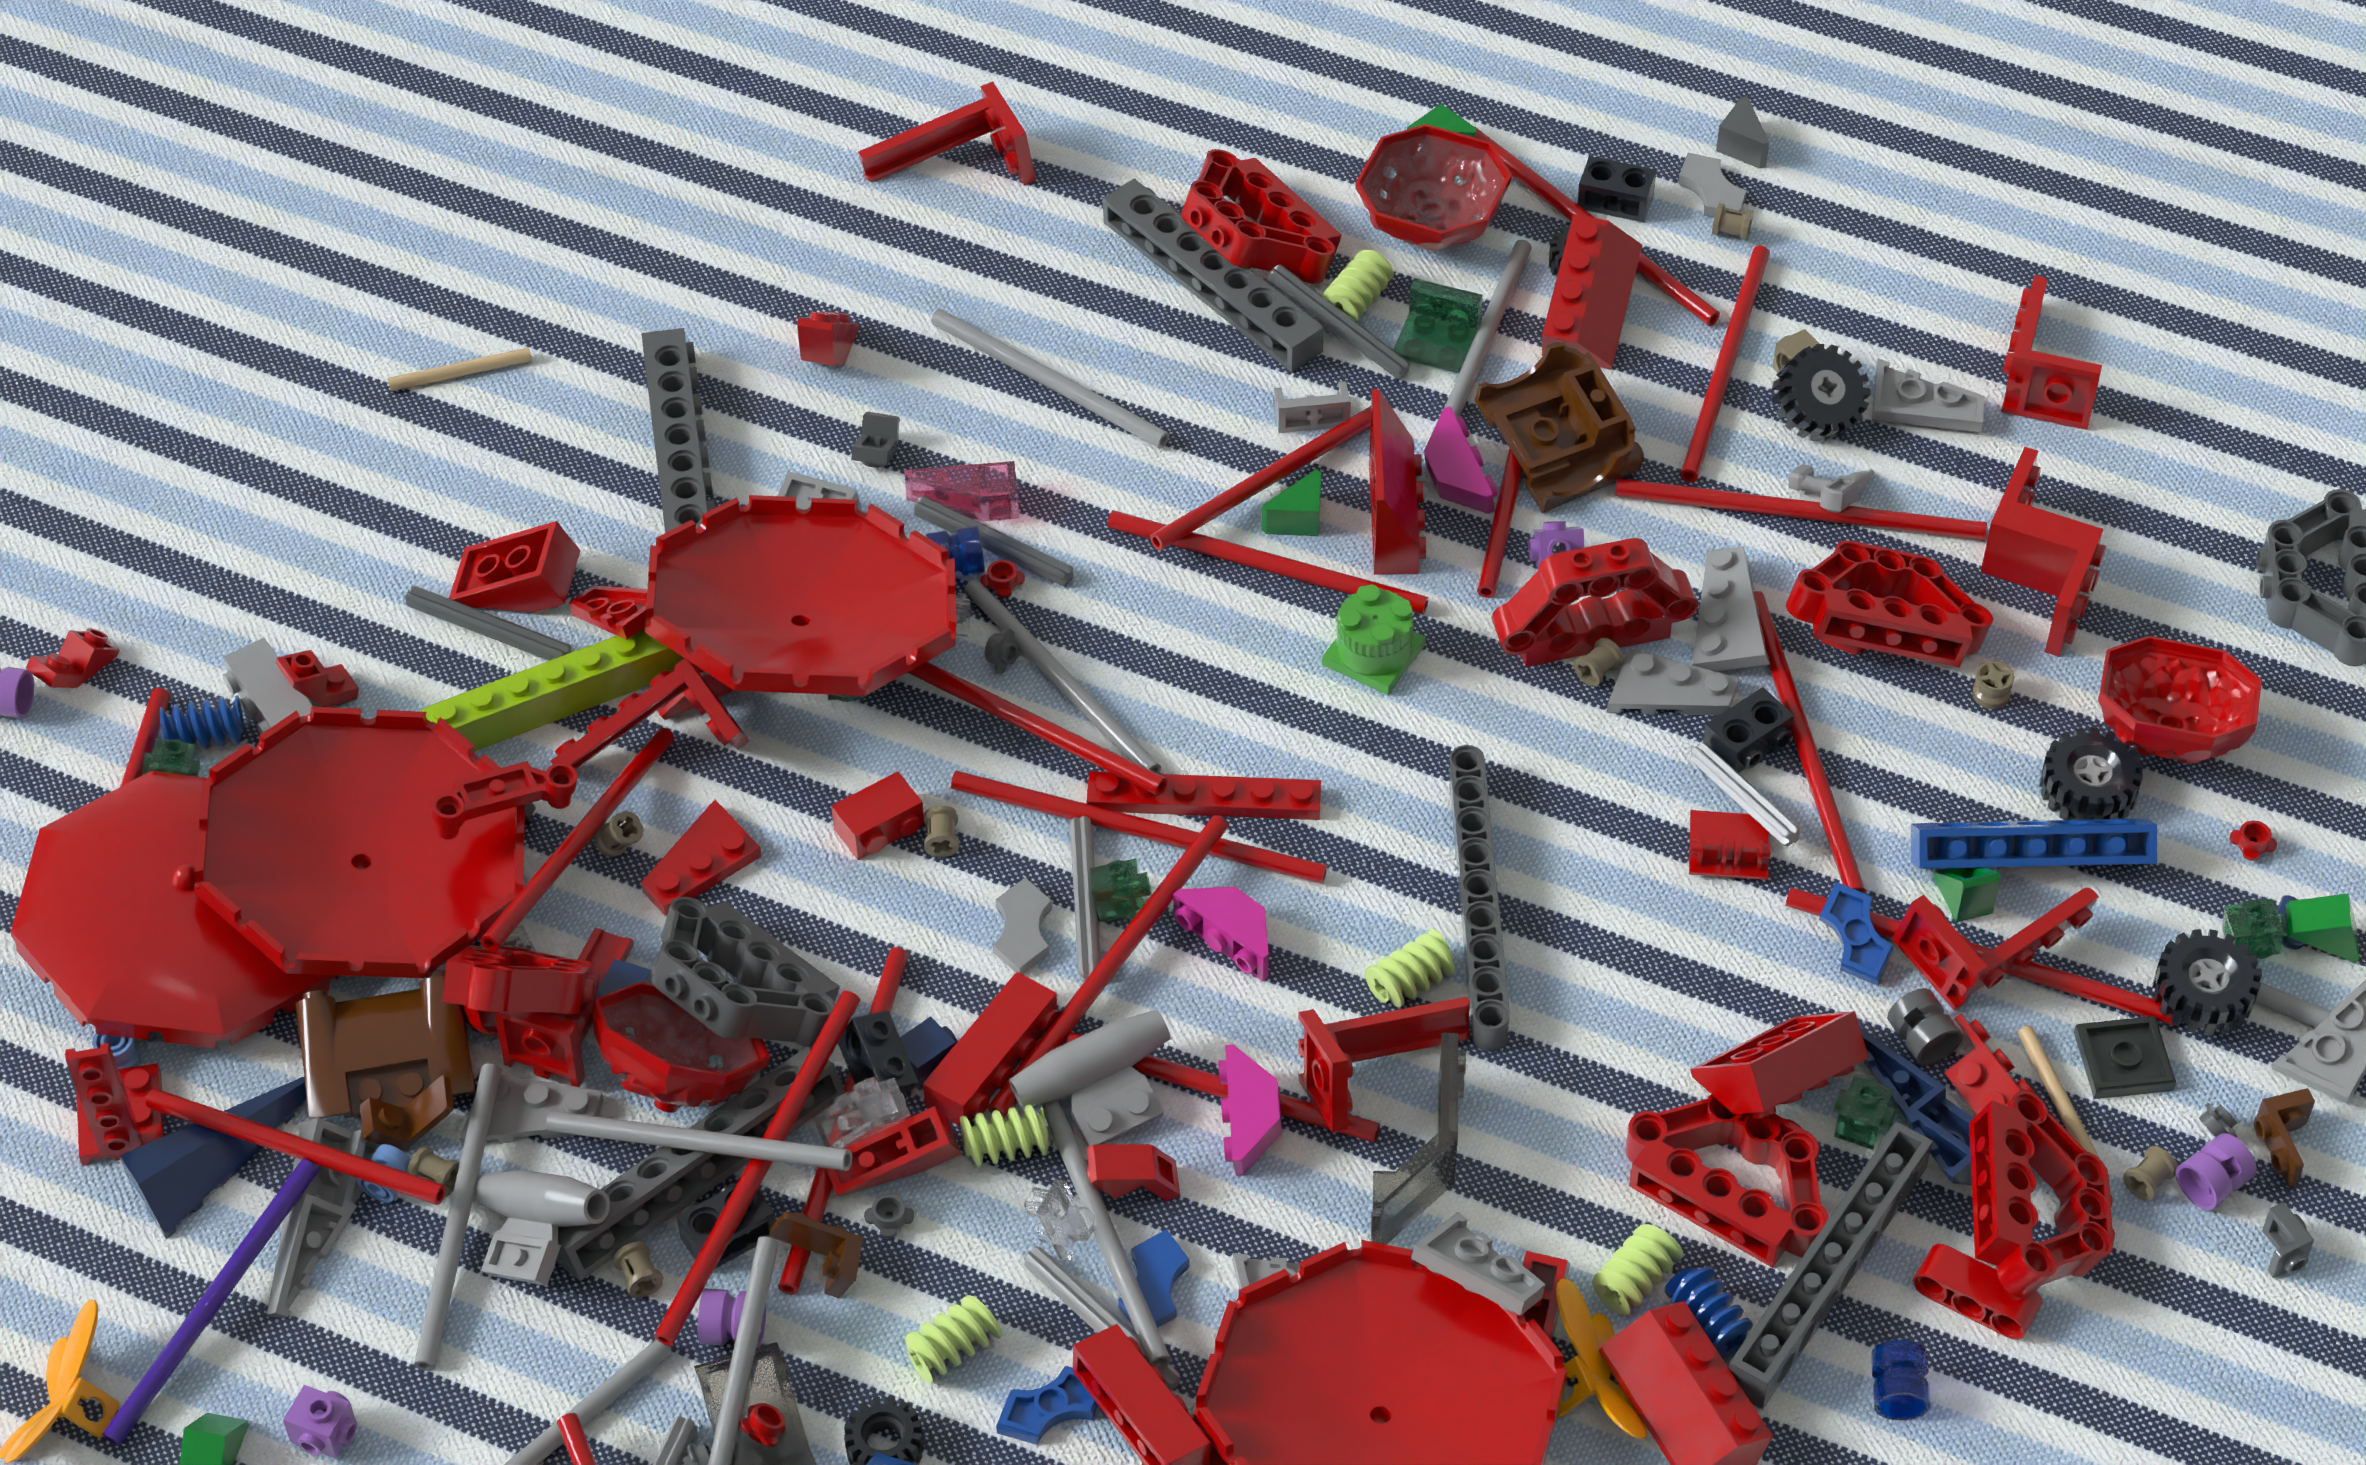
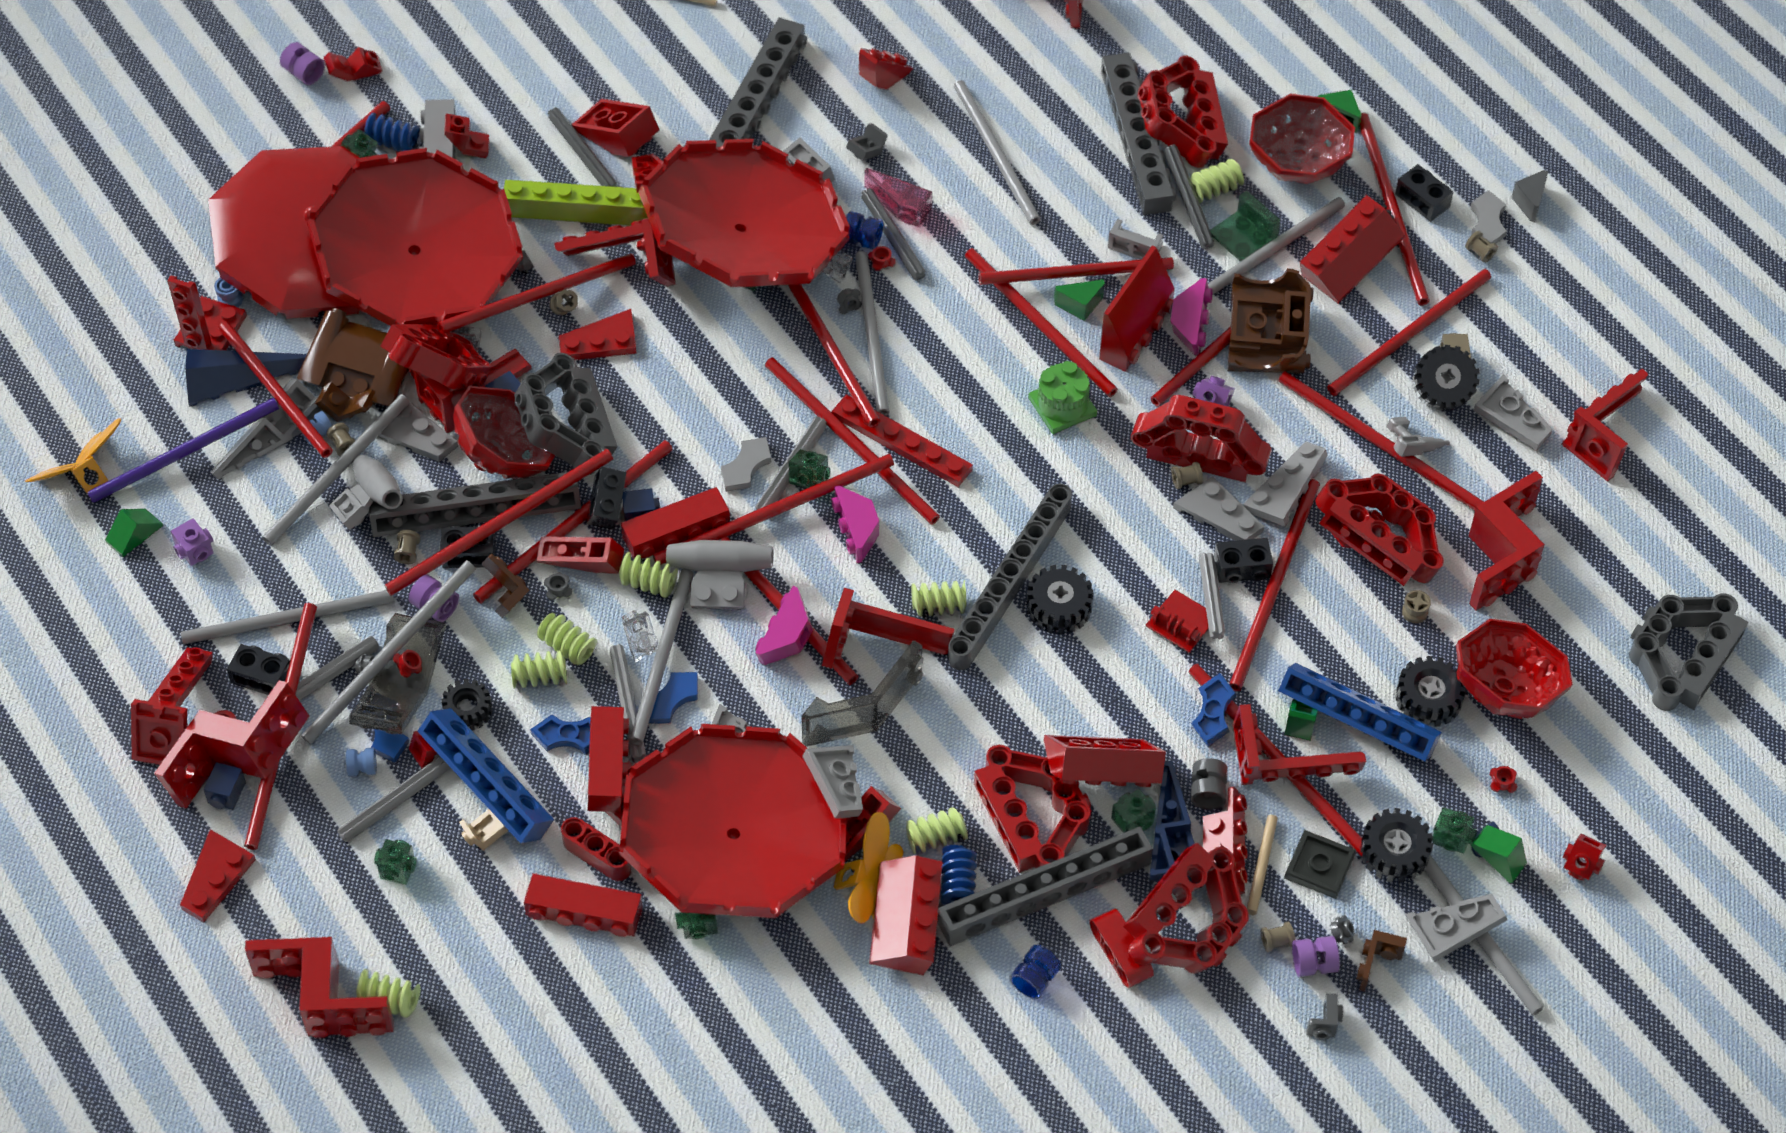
camera: 30 degrees right, 5 degrees up
(499, 791) = (502, 245): red plate -> none
(699, 1140) = (477, 492): light grey piece -> none
(861, 1113) = (573, 521): clear brick -> none
(878, 815) = (710, 361): red brick -> none
(941, 831) = (739, 387): dark tan bush -> none
(960, 1276) = (566, 638): none -> yellowish green piece
(1126, 1167) = (697, 626): red slope -> none
(1549, 907) = (1061, 611): none -> black wheel

